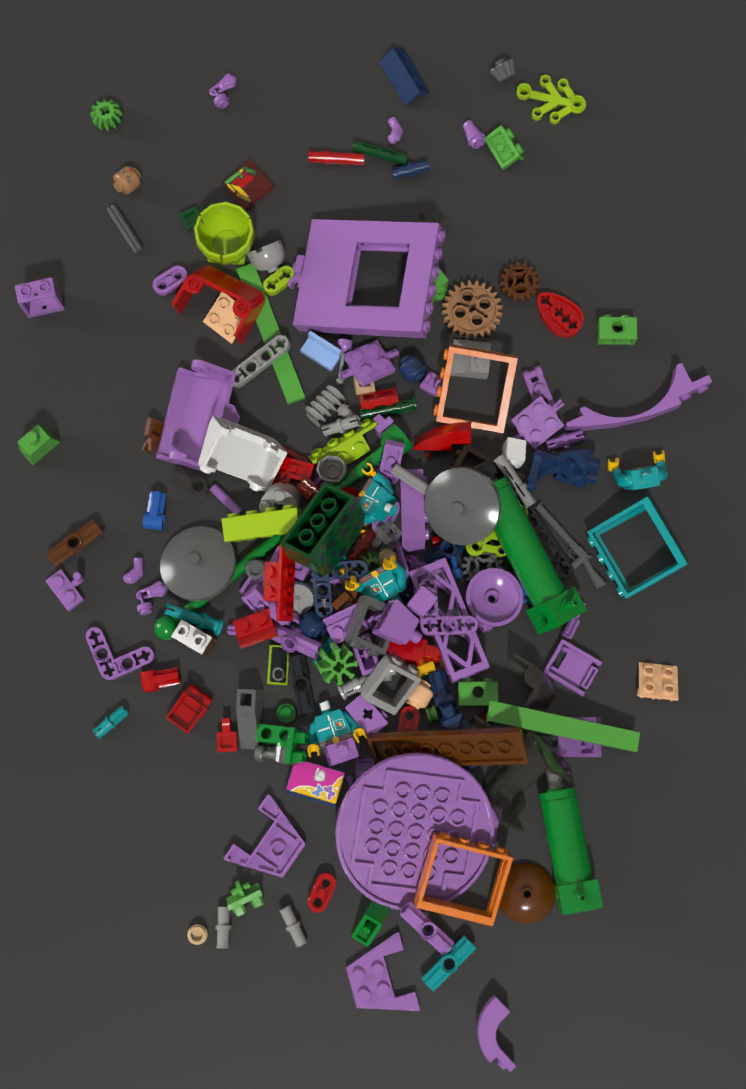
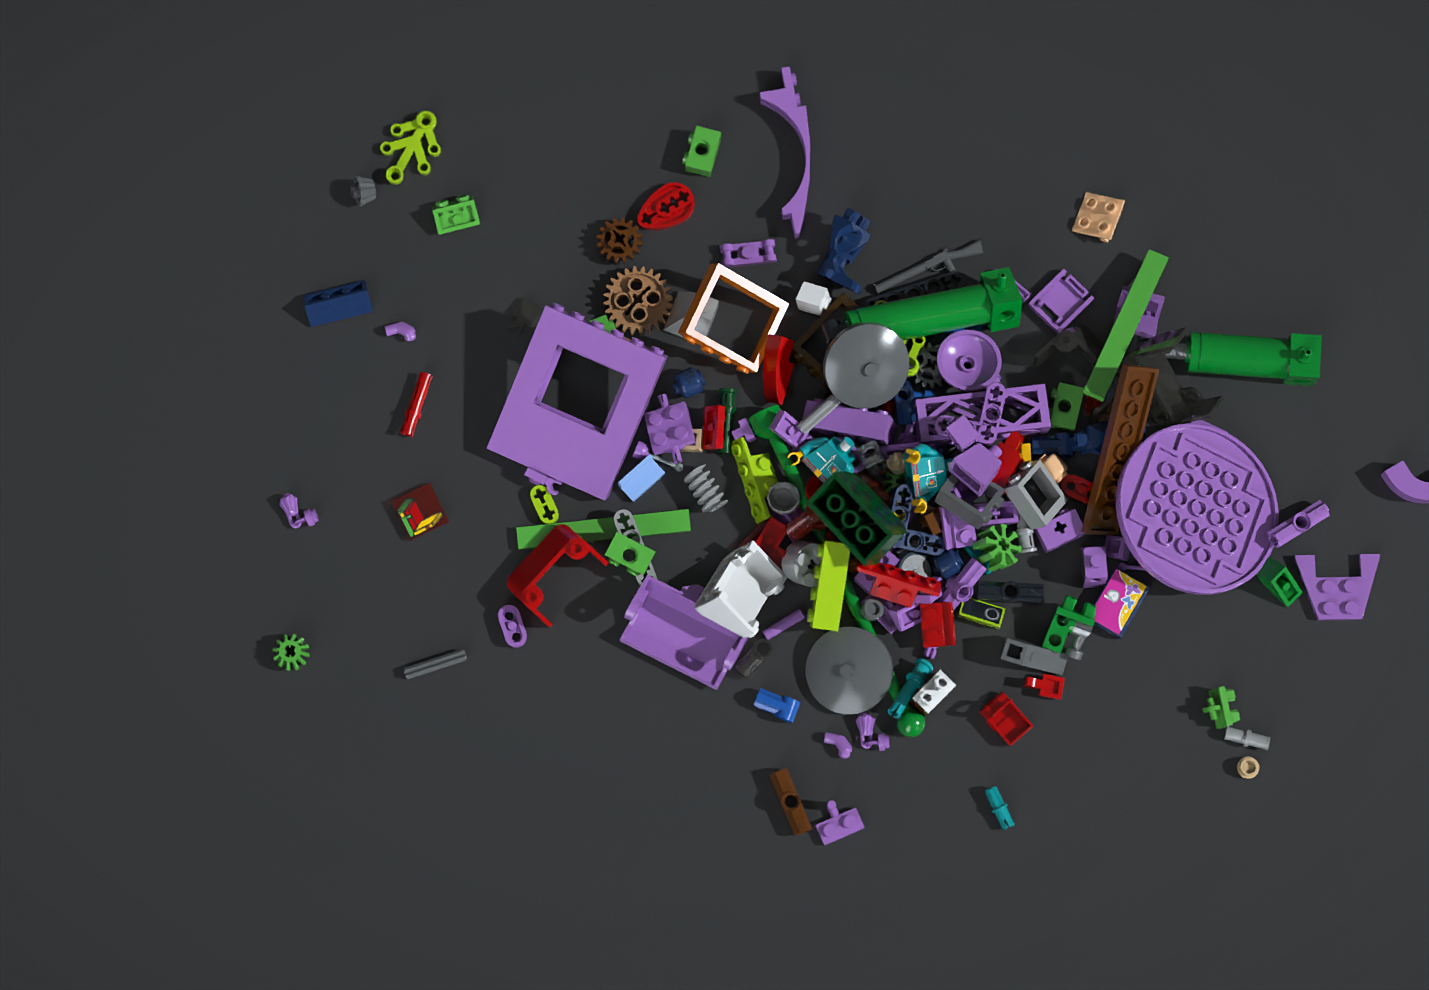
camera: 75 degrees left, 0 degrees up
(37, 443) = (667, 818): bright green torso -> none
(48, 295) = (497, 784): medium lavender window -> none
(117, 663) = (936, 787): medium lavender beam -> none
(127, 180) = (378, 646): medium nougat head -> none
(153, 432) = (687, 685): reddish brown plate -> none
(154, 679) = (965, 750): red piece -> none
(190, 217) = (445, 582): dark green plate -> none
(222, 318) = (573, 575): light nougat hinge -> none
(224, 233) = (483, 547): lime plate -> none
(253, 365) = (620, 544): none -> bright green brick
(267, 257) = (516, 509): light grey cylinder -> none
(276, 849) = (1177, 660): medium lavender wing -> none
(286, 713) = (1036, 616): green plate -> none
(293, 926) = (1263, 664): light grey pin -> none
(321, 892) = (1236, 623): red plate -> none
(331, 728) = (1065, 569): teal torso -> none
(341, 425) = (733, 476): light grey pin -> none
(345, 411) = (721, 467): light grey pin -> none
(387, 154) = (421, 356): dark green pin -> none
(410, 169) = (453, 325): dark blue pin -> none
(431, 383) = (709, 366): medium lavender tile -> none
(432, 714) = (1075, 461): bright green bush -> none
(439, 973) = (1346, 524): teal piece -> none
(457, 910) = (1288, 486): orange window -> none
(473, 134) = (431, 244): medium lavender cone -> none
(527, 499) = (869, 297): light grey pin -> none
(537, 421) = (784, 264): medium lavender plate -> none
(542, 893) = (1277, 426): reddish brown dish -> none
(564, 440) = (811, 241): medium lavender pin -> none
(605, 556) = (969, 229): teal windscreen -> none
(640, 477) = (874, 173): teal torso -> none

